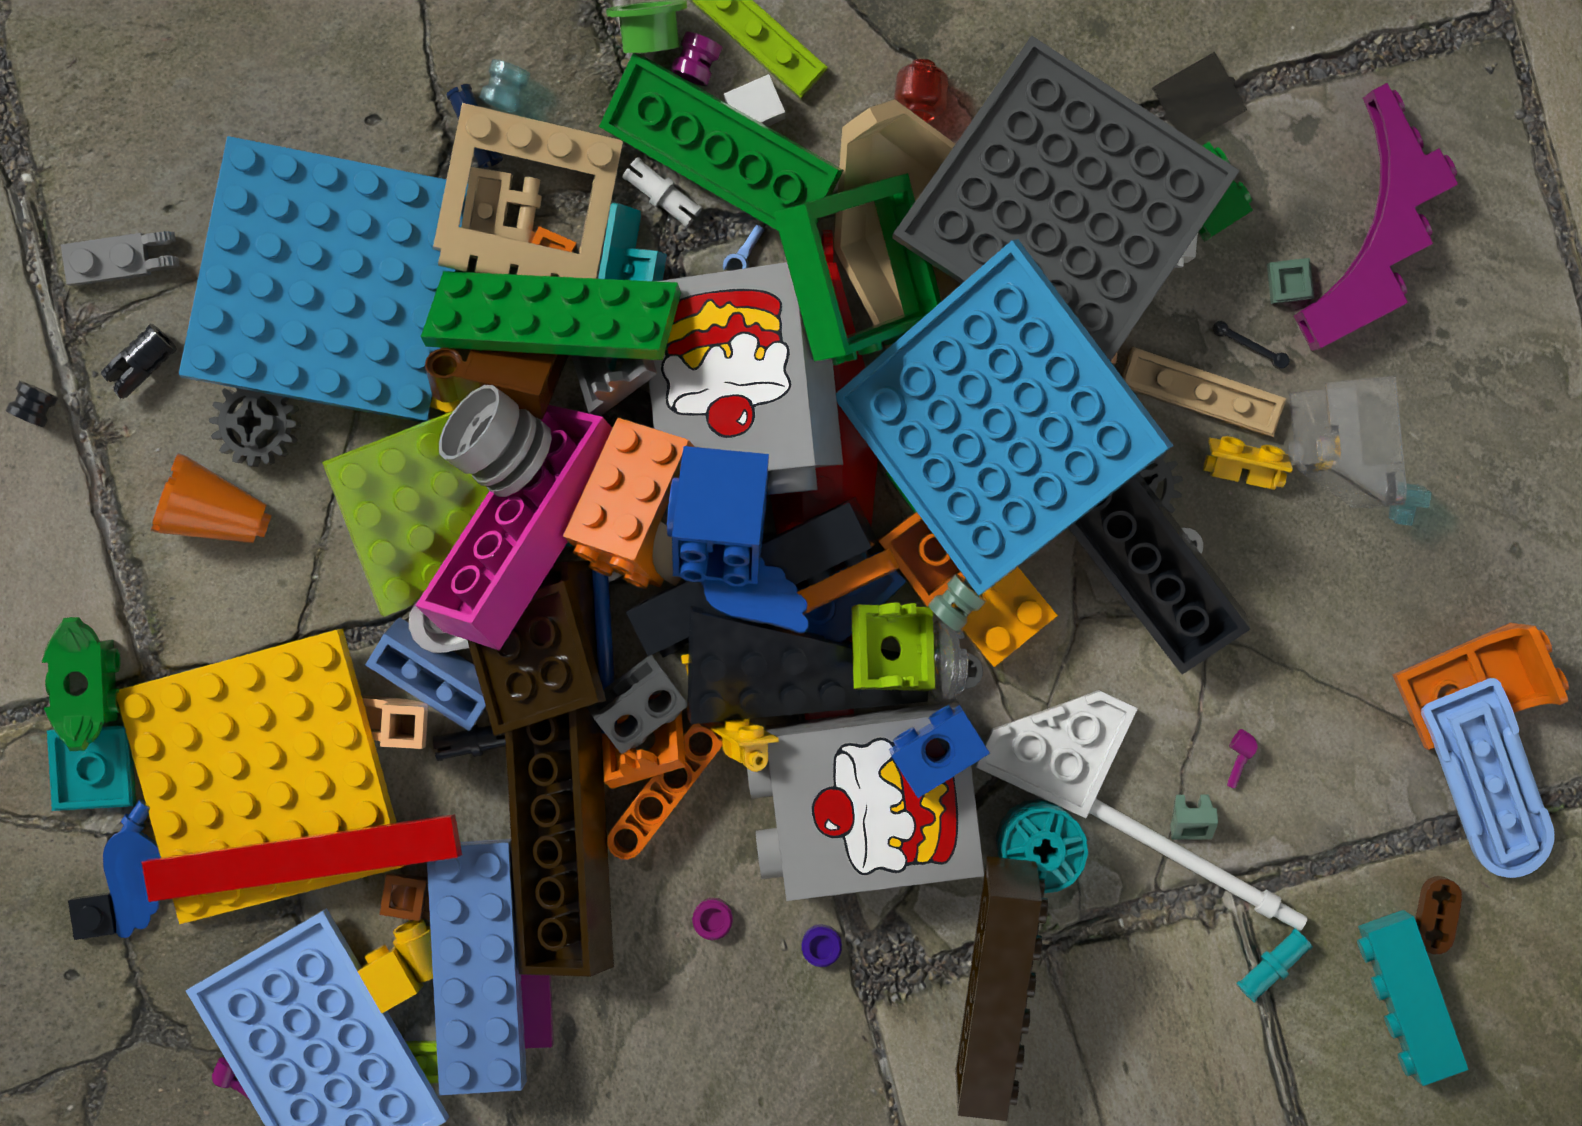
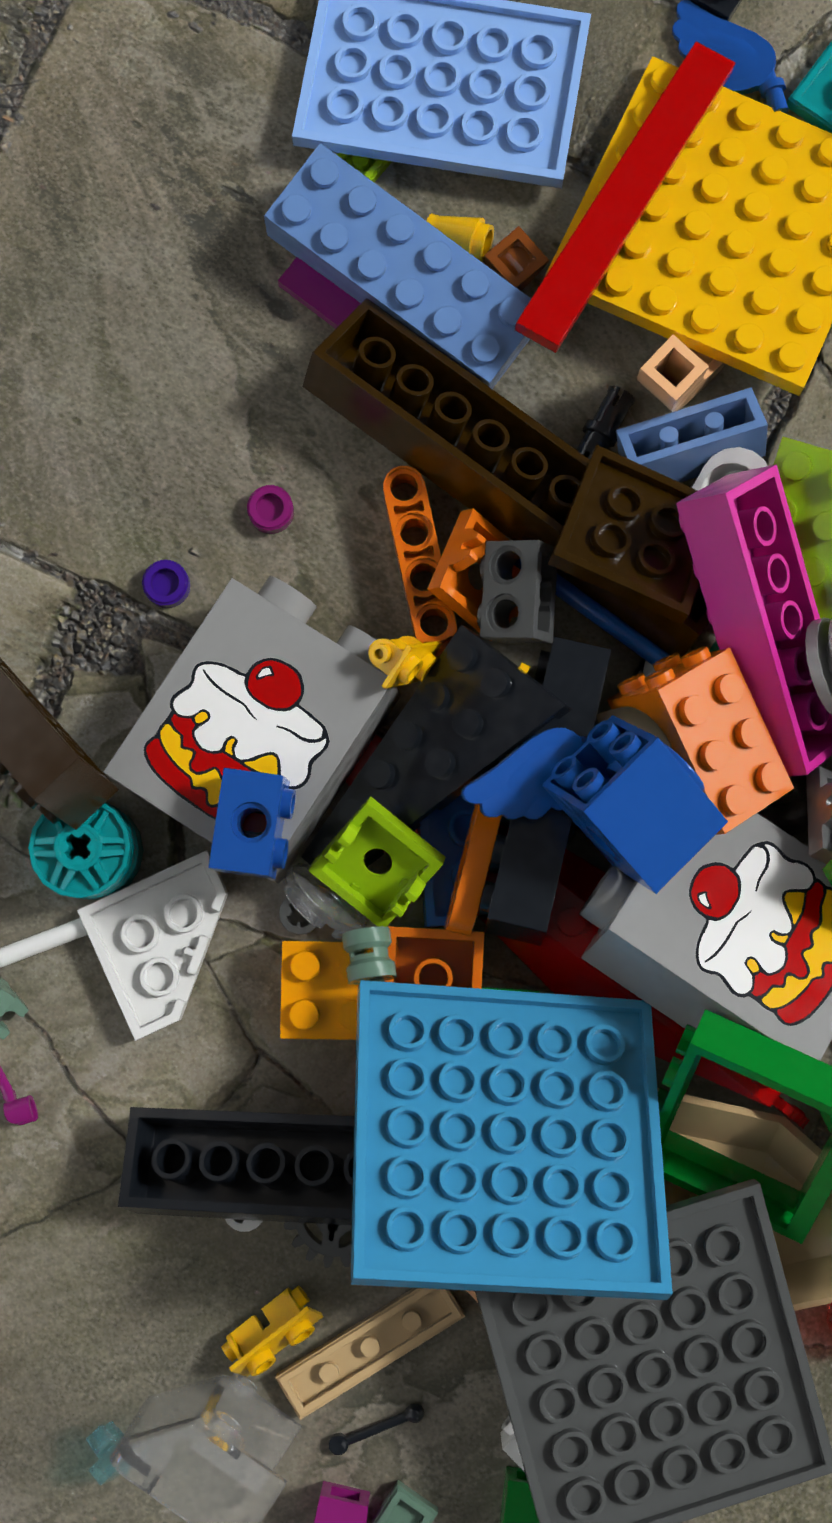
camera: 140 degrees right, 5 degrees down
(388, 978) = (456, 189): yellow brick -> none

